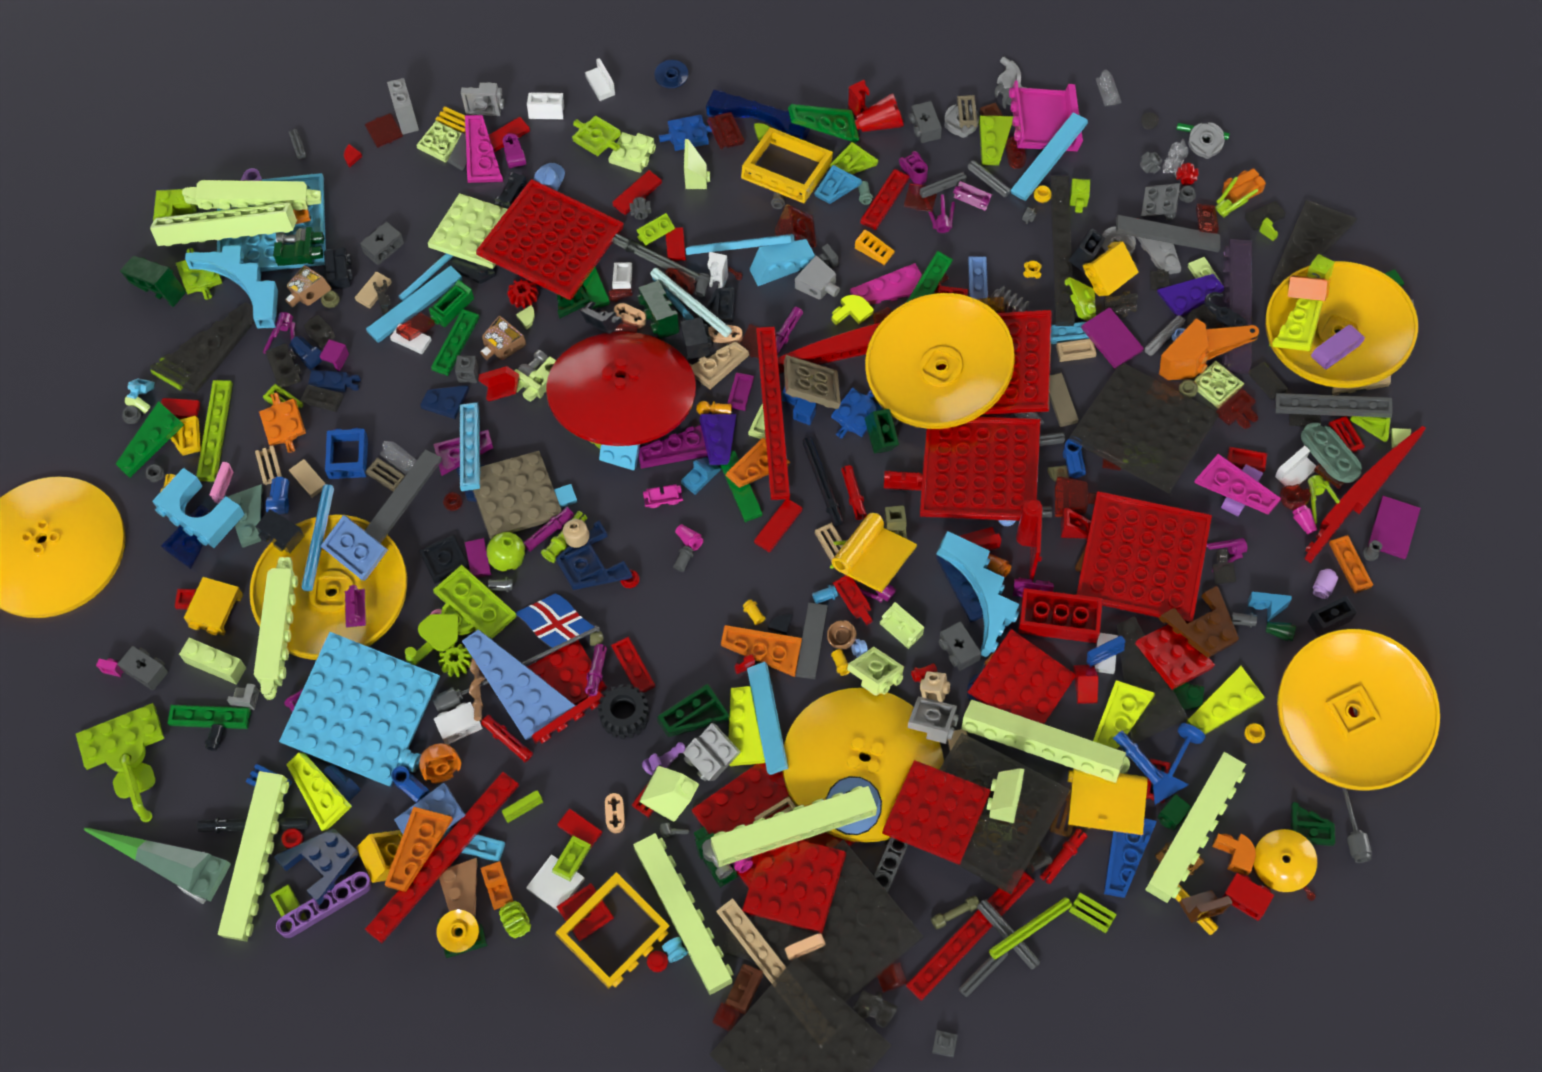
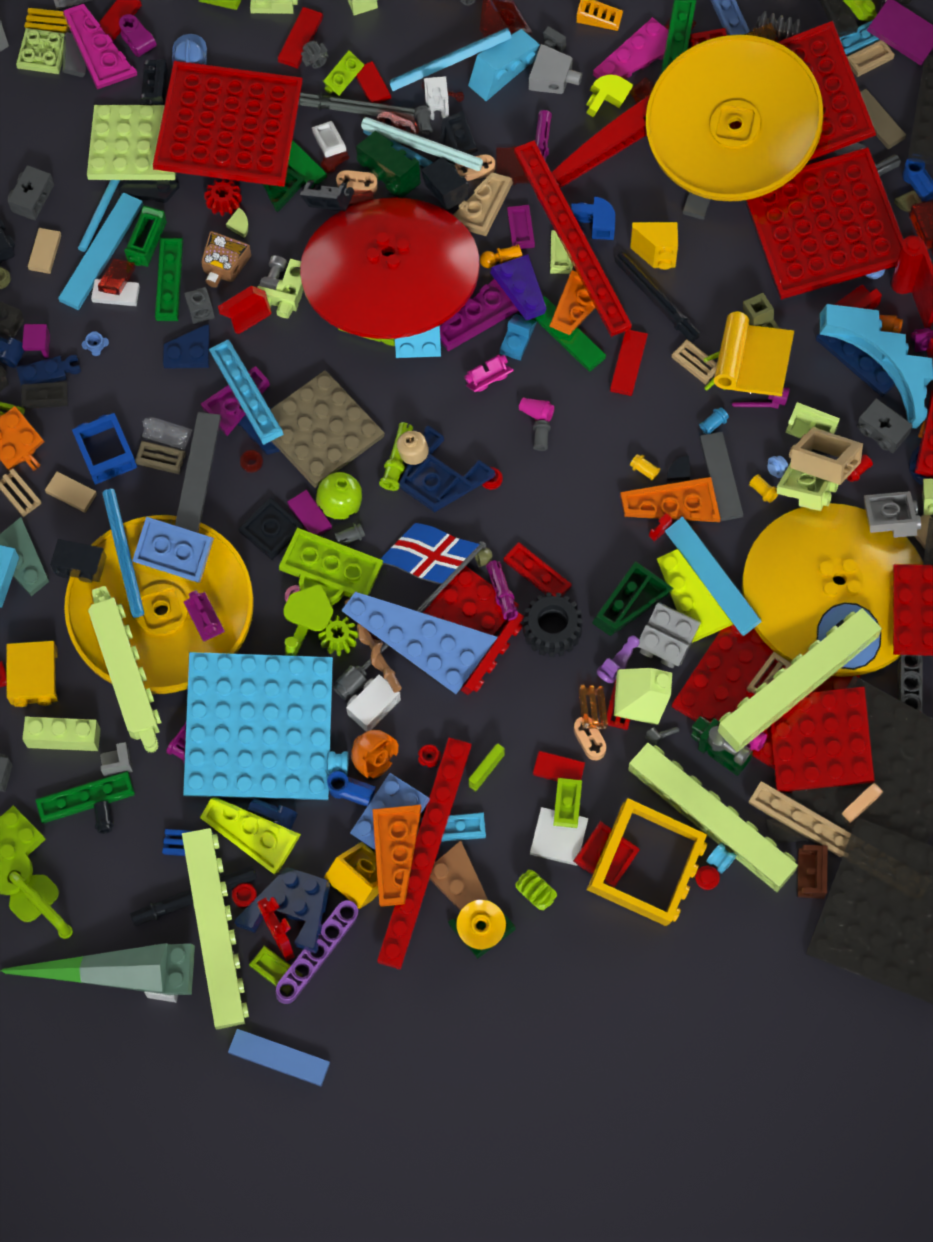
camera: 20 degrees left, 5 degrees up
(259, 978) = (279, 1057): none -> medium blue tile
(278, 496) = (49, 528): blue piece -> none
(295, 873) = (276, 928): none -> red tile
(375, 368) = (95, 337): none -> medium blue plate
(383, 299) = (63, 258): clear smoke plate -> none
(483, 776) = (426, 750): none -> red plate
(497, 885) = (496, 862): orange slope -> none
(500, 732) = (434, 700): red pin -> none
(543, 533) = (380, 445): magenta pin -> none
(565, 495) = (377, 410): medium azure tile -> none
(632, 775) = (591, 691): none -> clear orange tile
(726, 1017) = (806, 908): clear red tile -> none
(811, 382) = (601, 189): dark tan plate -> none
(838, 438) = (656, 243): none -> yellow slope
(841, 634) = (752, 458): medium nougat hair -> none
(853, 411) = (661, 203): blue plate -> none
(853, 598) = (748, 414): red hinge -> none
(856, 499) = (702, 304): red pin -> none
(881, 431) = (700, 218): dark green brick -> none
(900, 668) = (822, 466): none -> tan window
(903, 480) = (744, 266): red hinge -> none
(935, 686) = (877, 478): tan brick -> none

